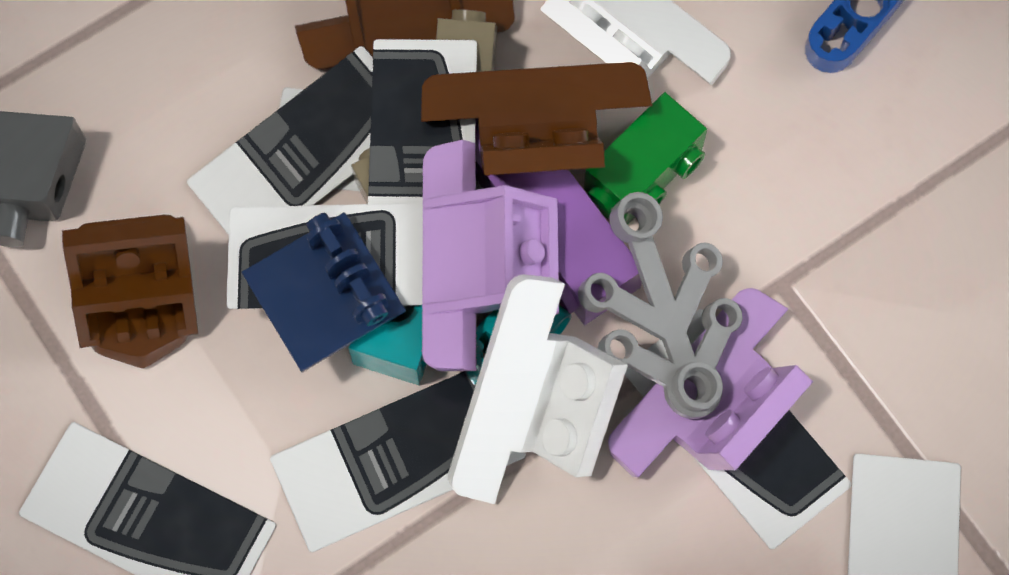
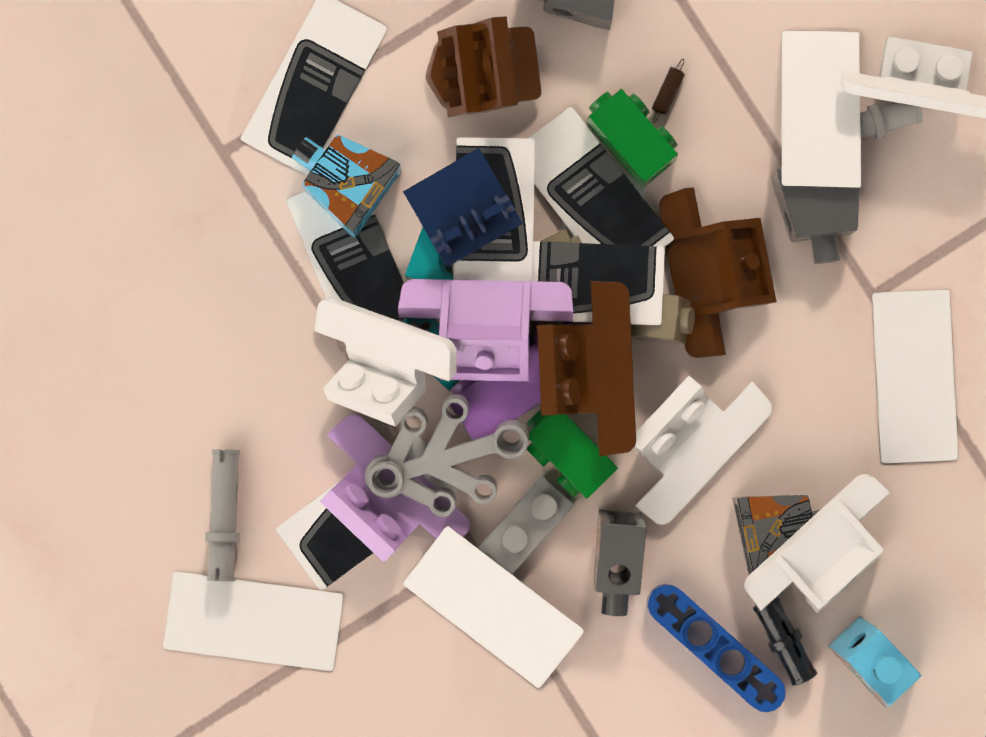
camera: 90 degrees right, 15 degrees up
(168, 62) = (668, 91): none -> reddish brown piece
(228, 97) = (631, 137): none -> green brick
(284, 461) = (346, 179): none -> torso
(752, 223) = (526, 525): none -> light grey hinge
(778, 91) = (619, 542): none -> dark grey torso
(854, 255) = (493, 607): none -> white sticker

